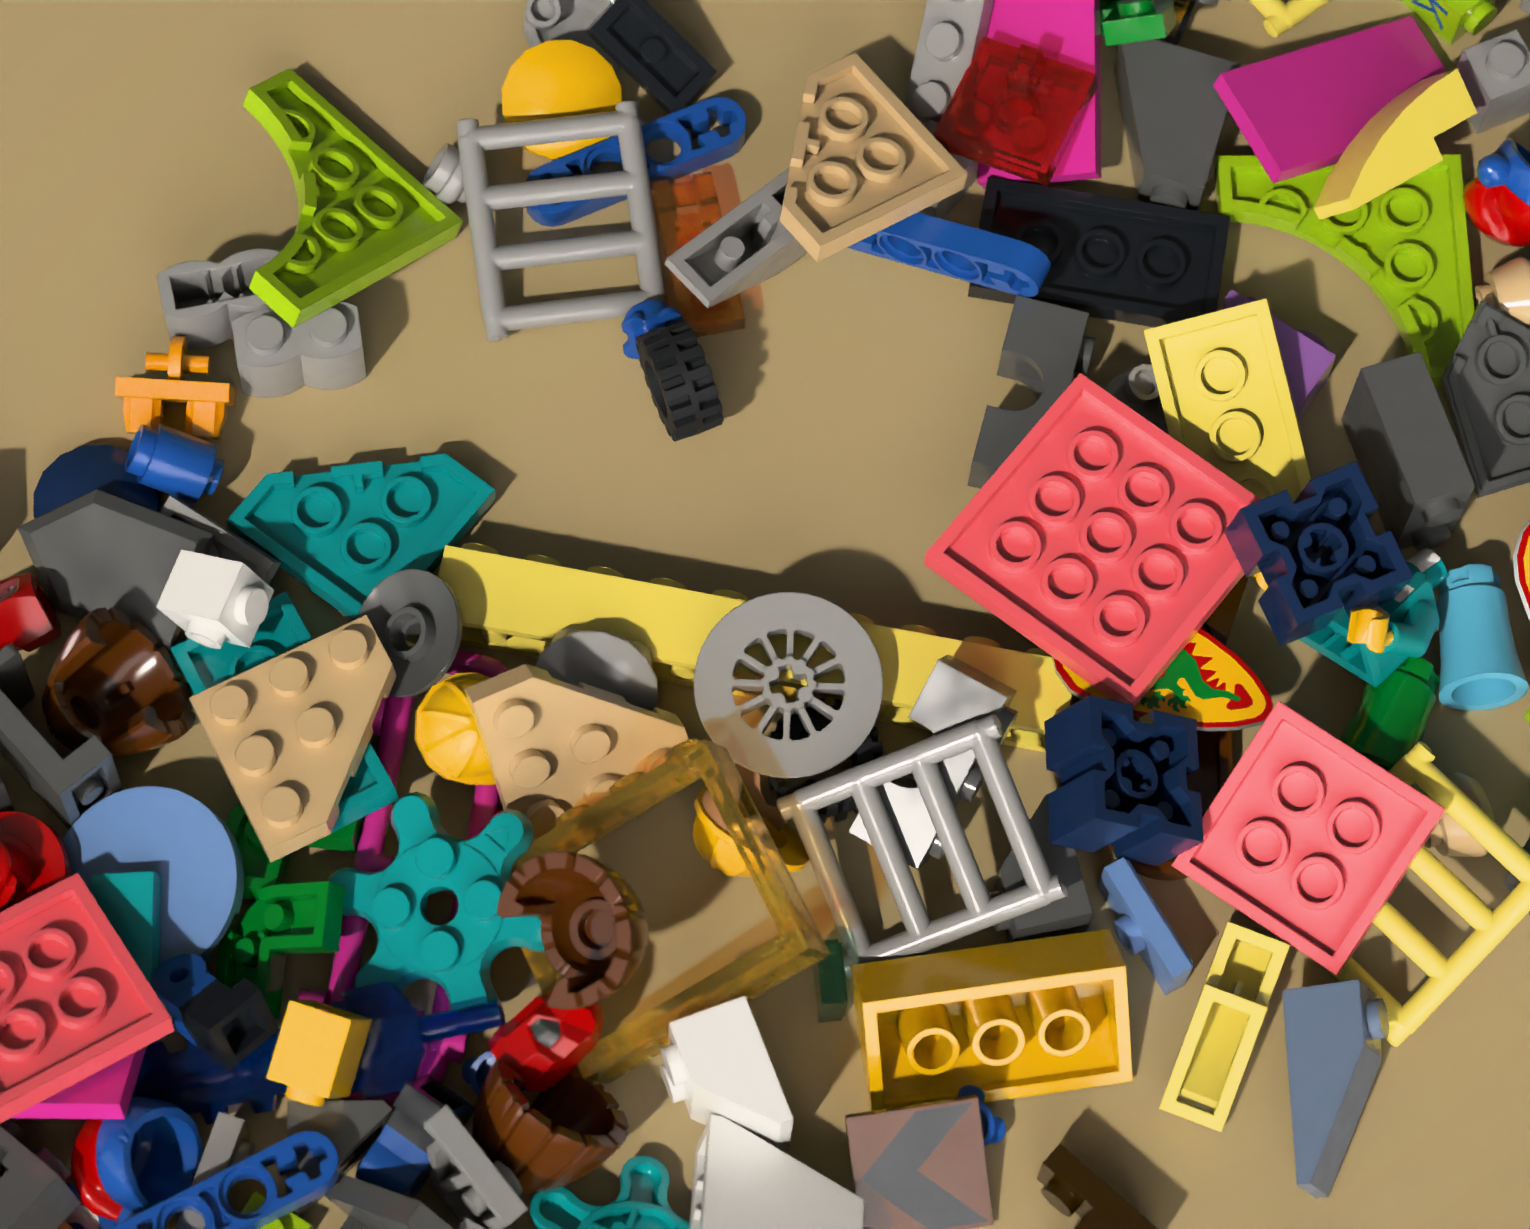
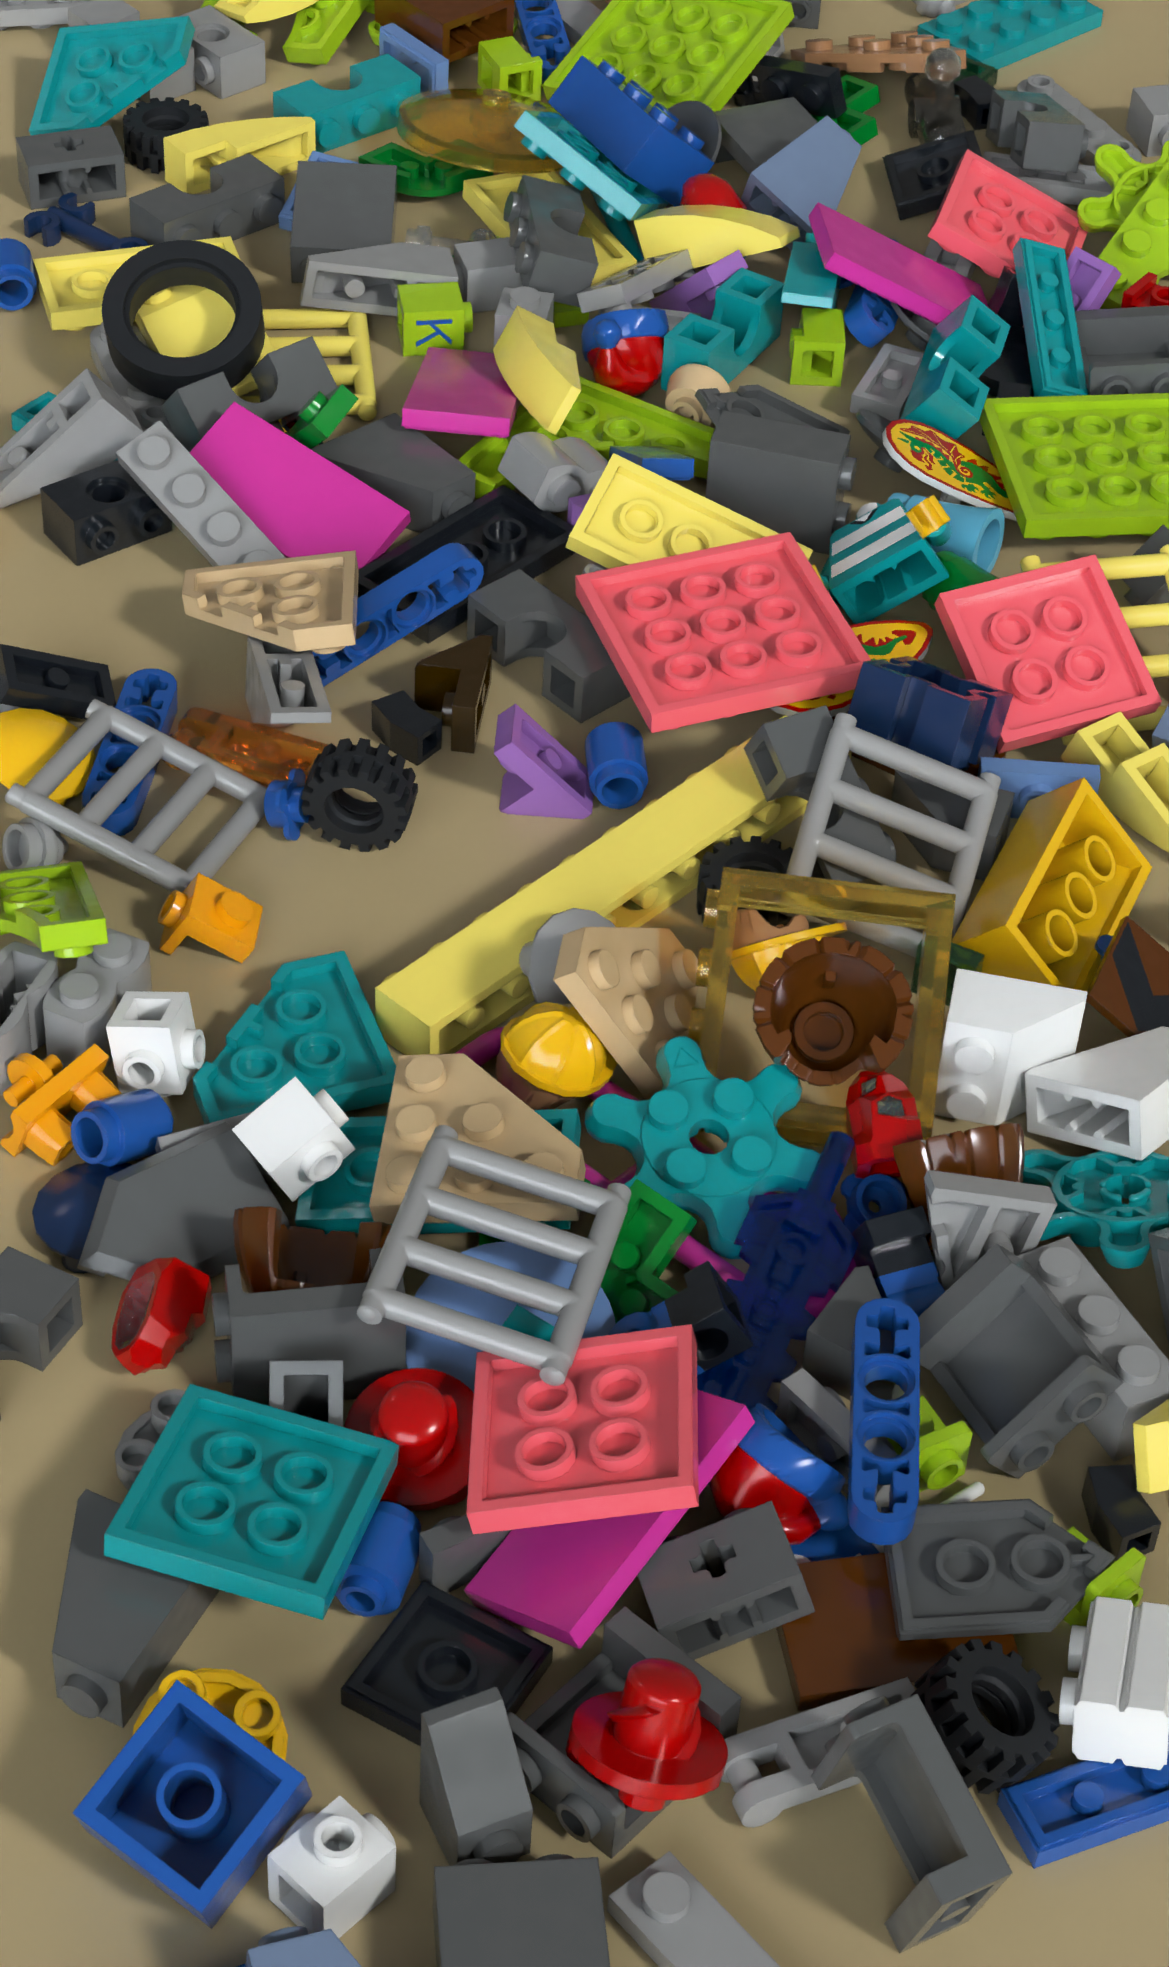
camera: 55 degrees left, 25 degrees down
(141, 914) = (570, 1305): none -> light grey bar
(271, 423) = (155, 1042): none -> white brick
(318, 1051) = (789, 1265): yellow brick -> none
(411, 606) = (432, 1011): dark grey dish -> none
(467, 364) = (211, 916): none -> light orange bracket
(789, 615) = (650, 830): light grey piece -> none
(831, 351) = (406, 727): none -> black piece
(843, 498) = (540, 772): none -> medium lavender slope
(896, 554) = (616, 764): none -> blue brick
(920, 365) = (457, 686): none -> dark brown slope
(1016, 110) = (324, 509): clear red hinge -> none
(1279, 258) = (551, 470): none -> light grey brick
(1318, 553) = (847, 512): dark blue brick -> none
(1346, 325) = (658, 460): none -> blue tile

